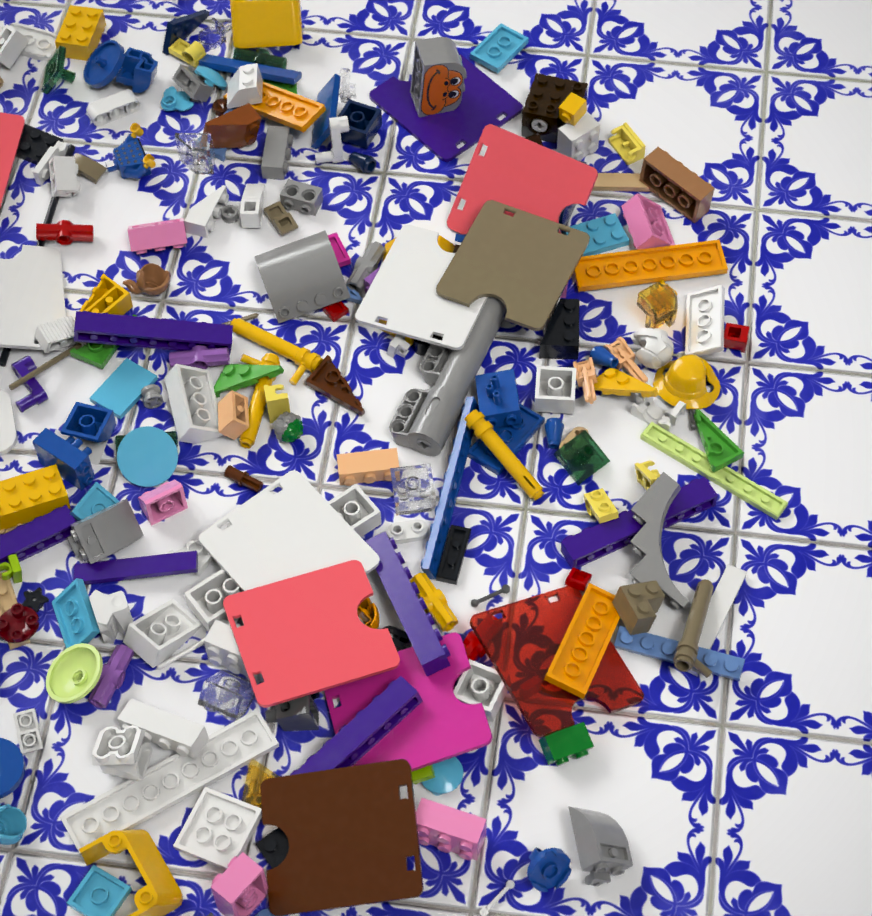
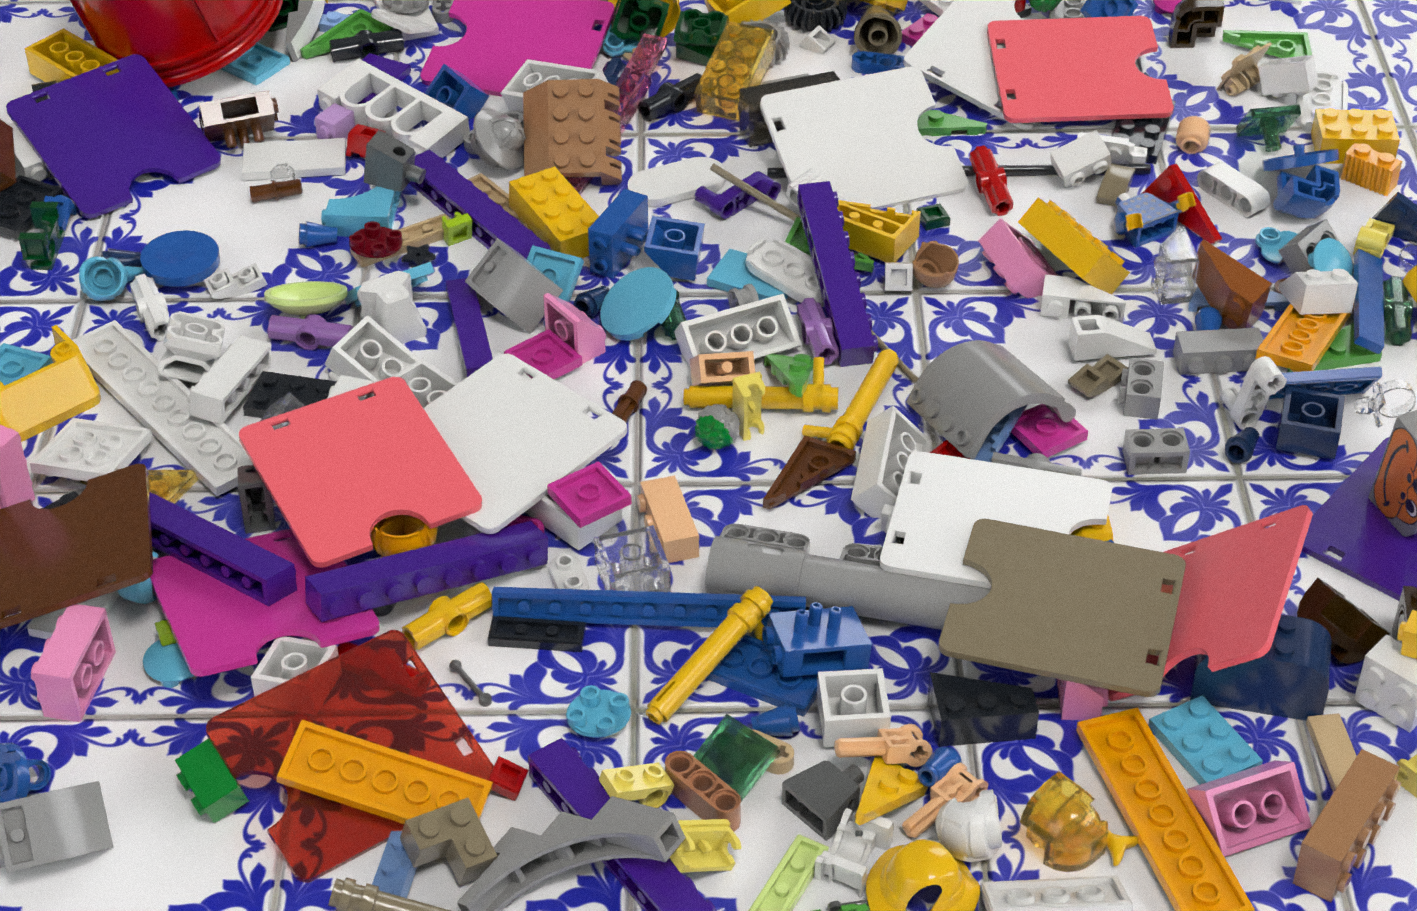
camera: 80 degrees right, 15 degrees down
(47, 791) = (150, 306): none -> white piece
(48, 114) = (1193, 134): none -> light nougat head
(86, 275) = (933, 216): none -> dark green tile
(115, 134) = (1172, 184): none -> red wing
(121, 31) = (1371, 169): none -> light orange brick
(126, 489) = (591, 301): none -> dark blue cone
(129, 365) = (784, 269): none -> white tile
(152, 304) = (898, 276): none -> white tile
(162, 199) = (1074, 245): none -> yellow brick
(181, 525) = (547, 354): none -> dark pink plate
(182, 688) = (273, 386): none -> black plate
(249, 153) = (1208, 319): none -> blue cone
(345, 340) = (883, 459): none -> white slope
(360, 204) = (1155, 451): none -> light grey brick
(361, 497) = (589, 494): none -> dark pink plate
(531, 525) = (598, 712): none -> medium azure dish
(609, 468) = (702, 789): none -> nougat beam
(617, 416) = (822, 795): none -> dark grey torso

